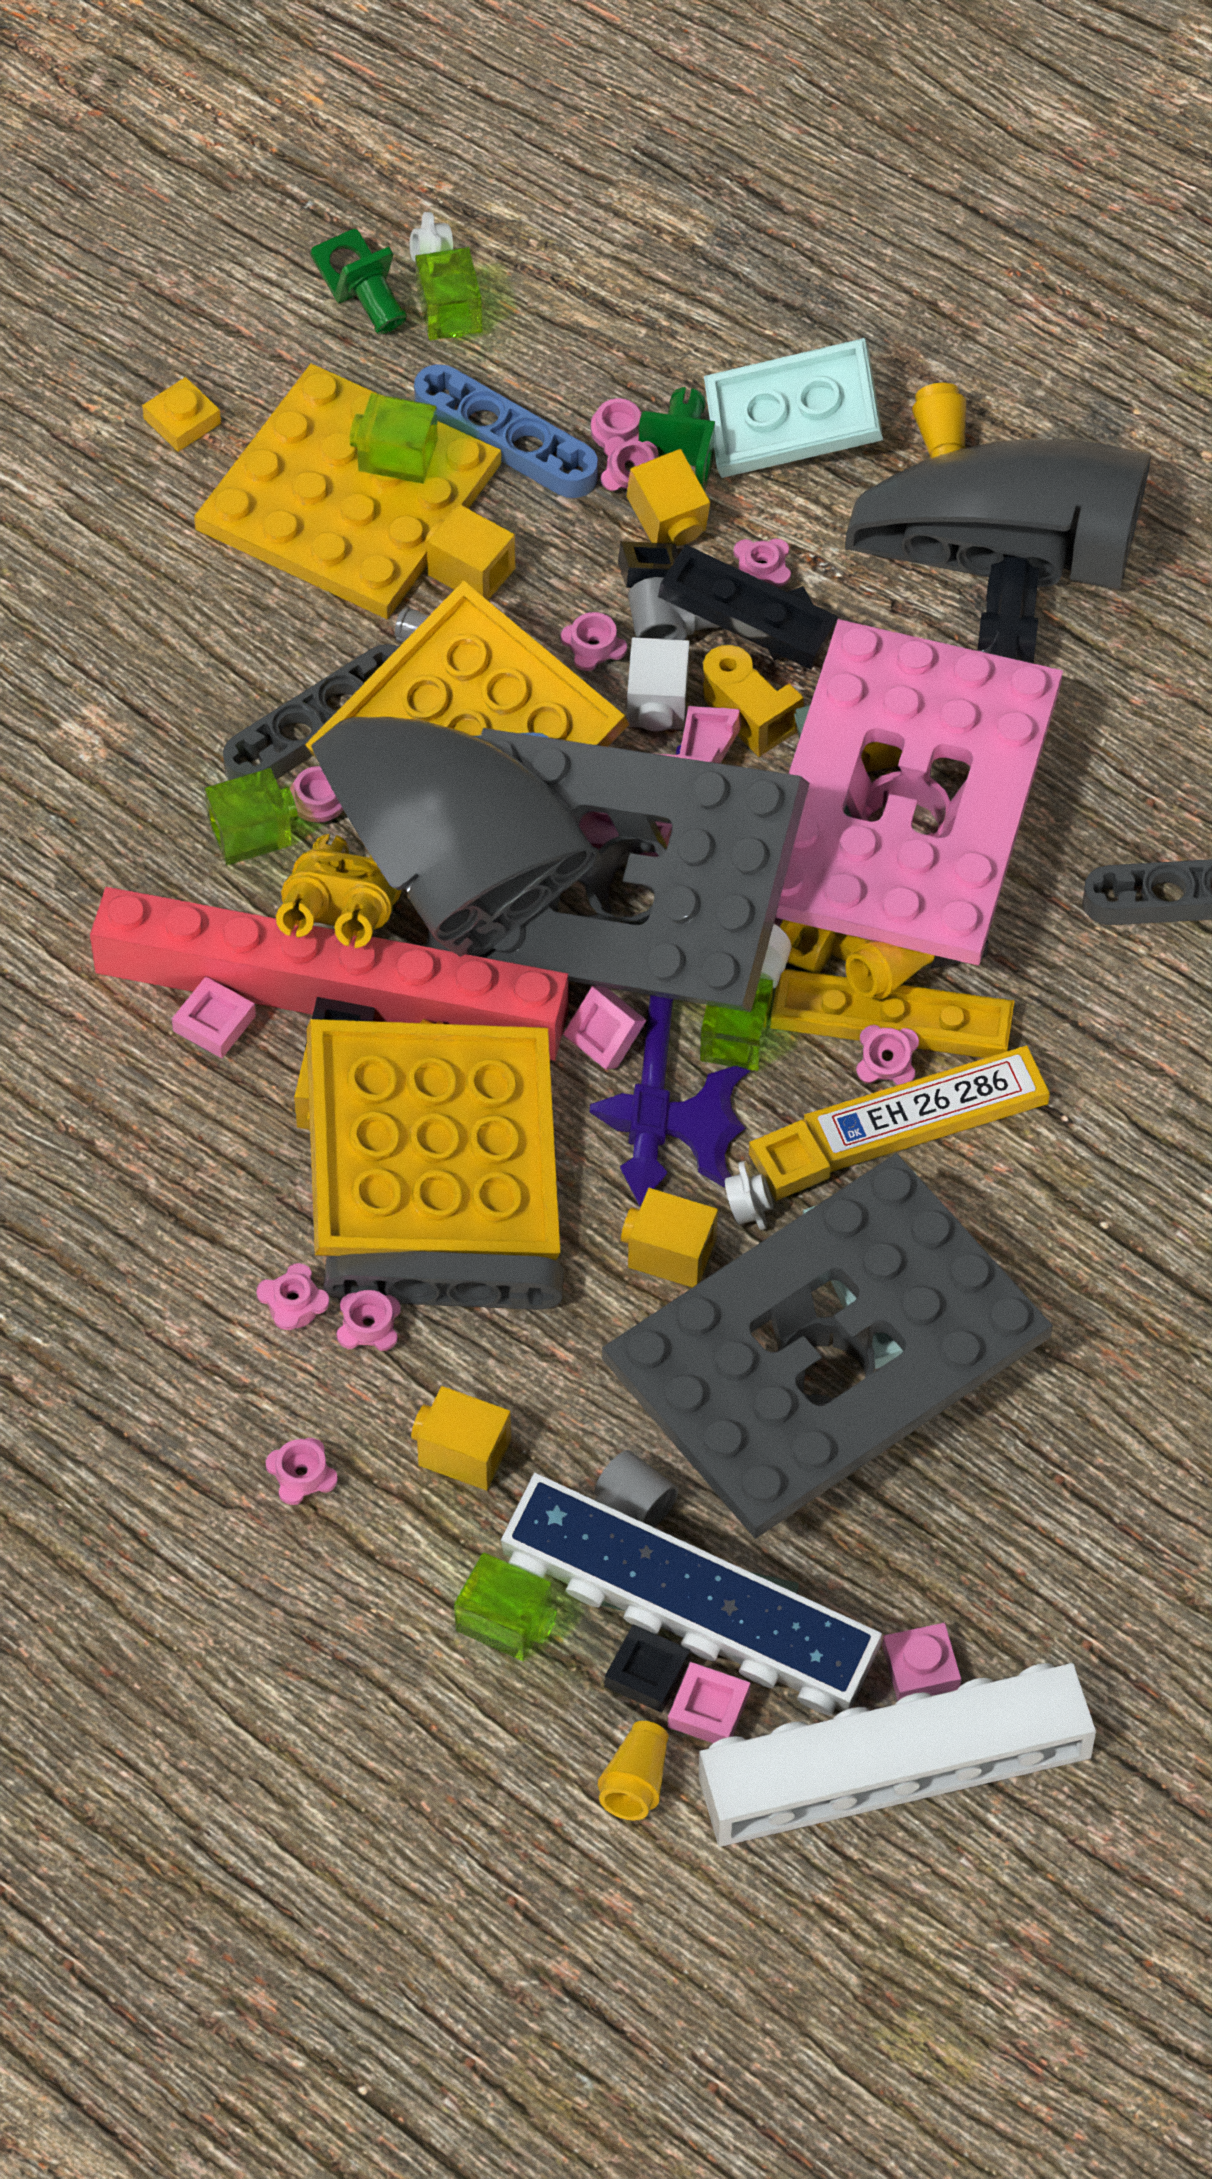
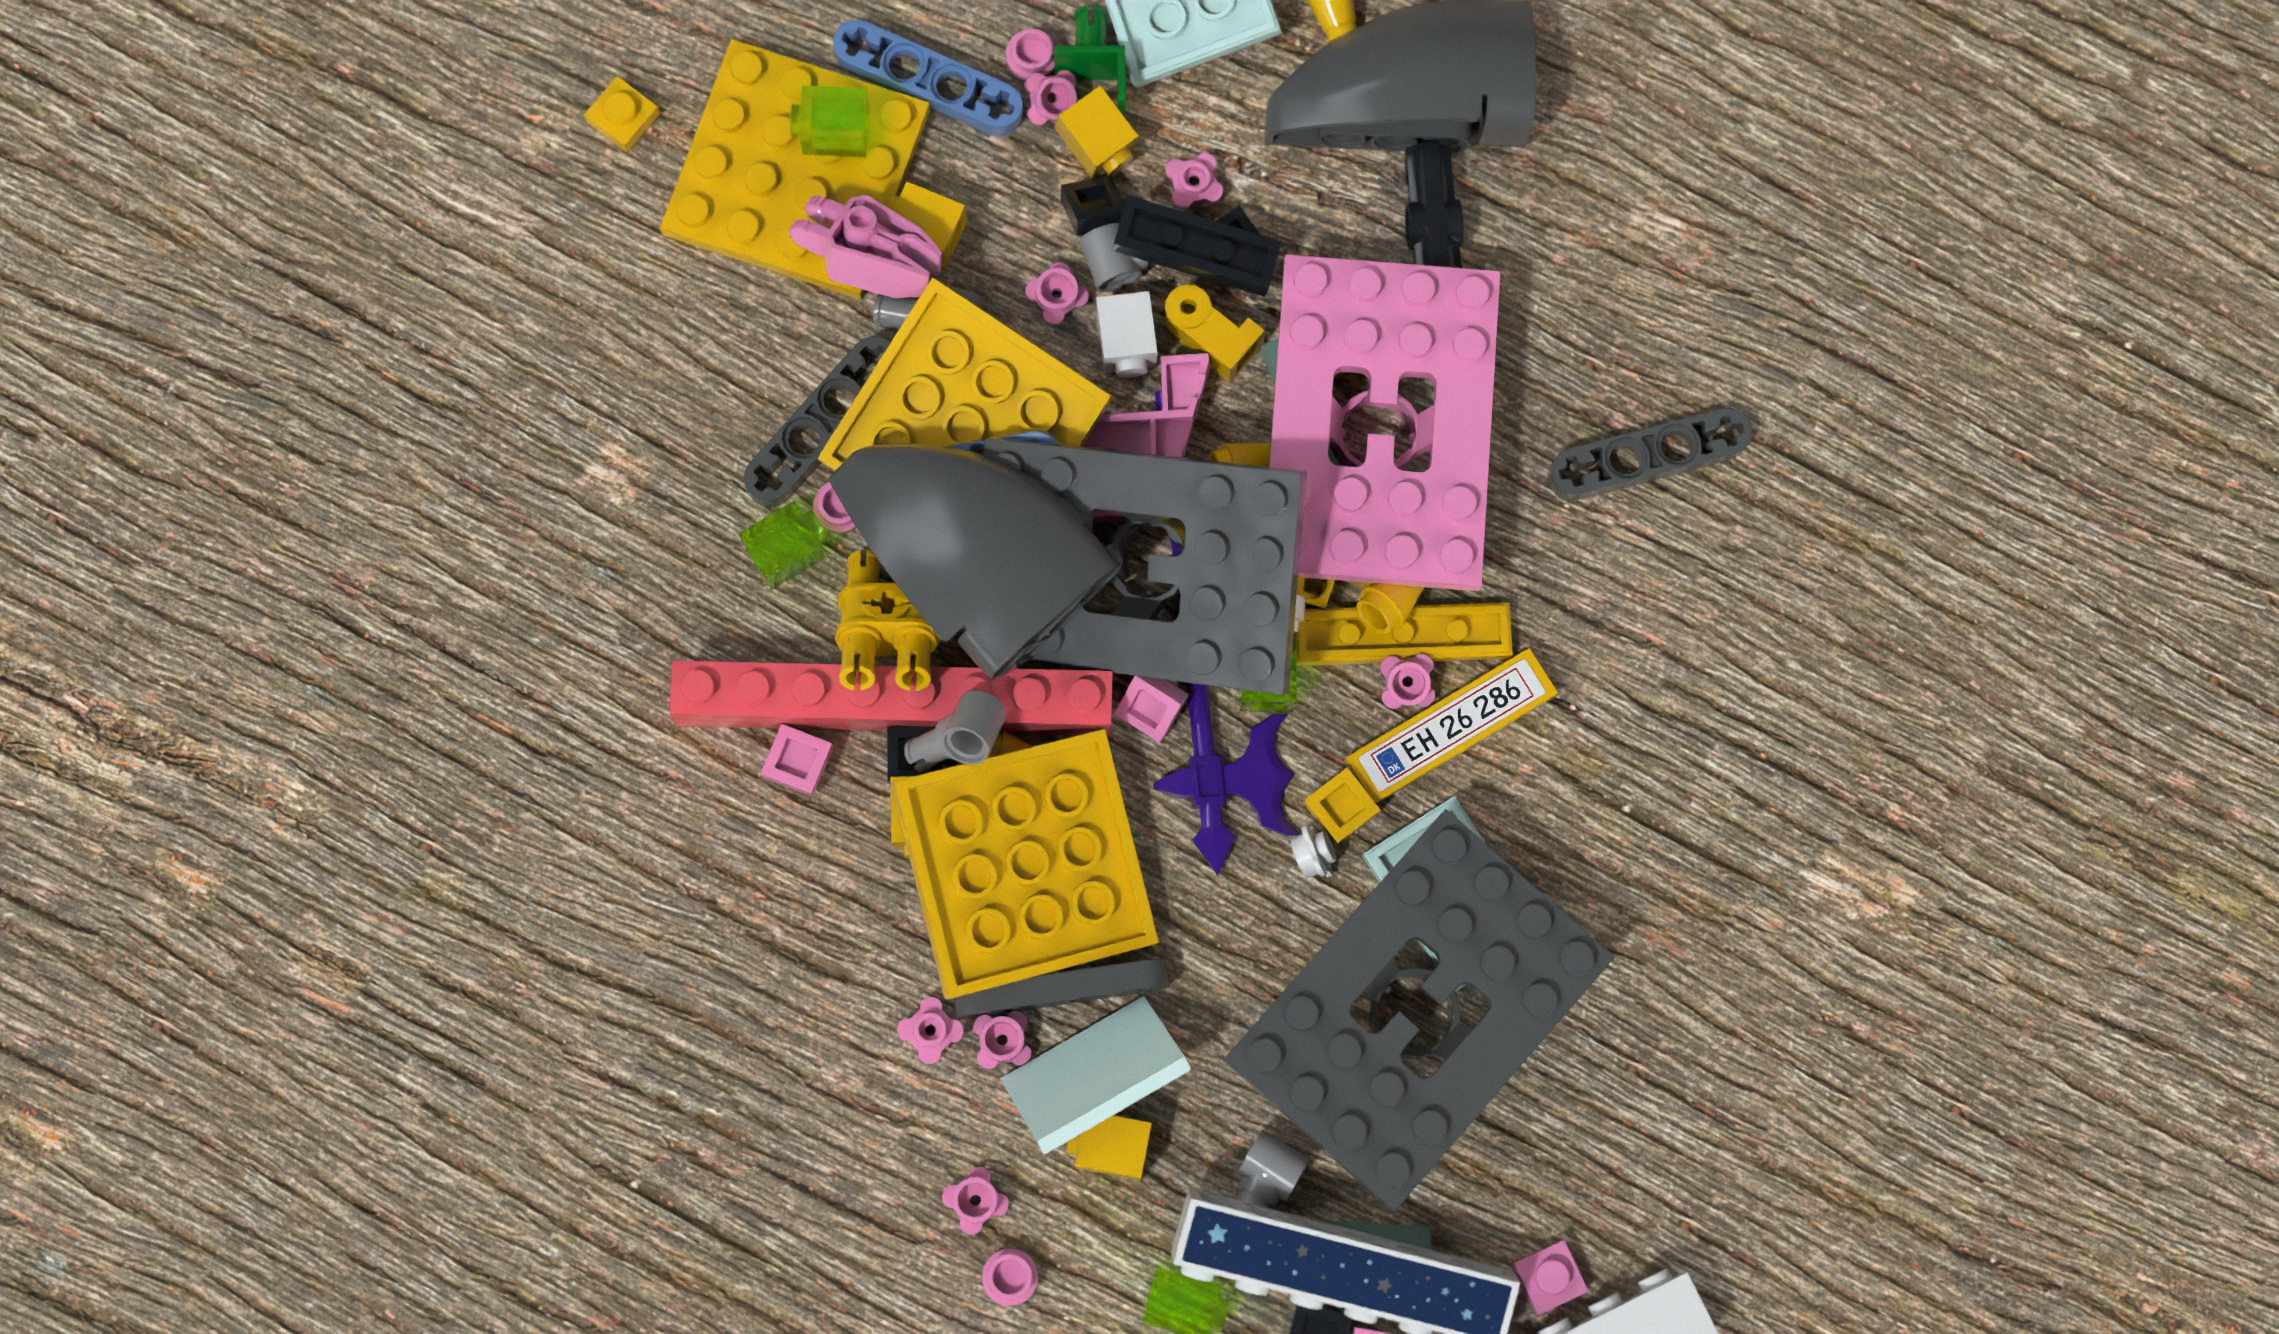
camera: 15 degrees left, 20 degrees up
(321, 1551) = (1010, 1277): none -> bright pink plate
(387, 997) = (962, 736): none -> light grey pin
(404, 547) = (869, 246): none -> bright pink hinge
(460, 1358) = (1095, 1074): none -> light aqua tile
(670, 1237) = (1252, 908): yellow brick -> none

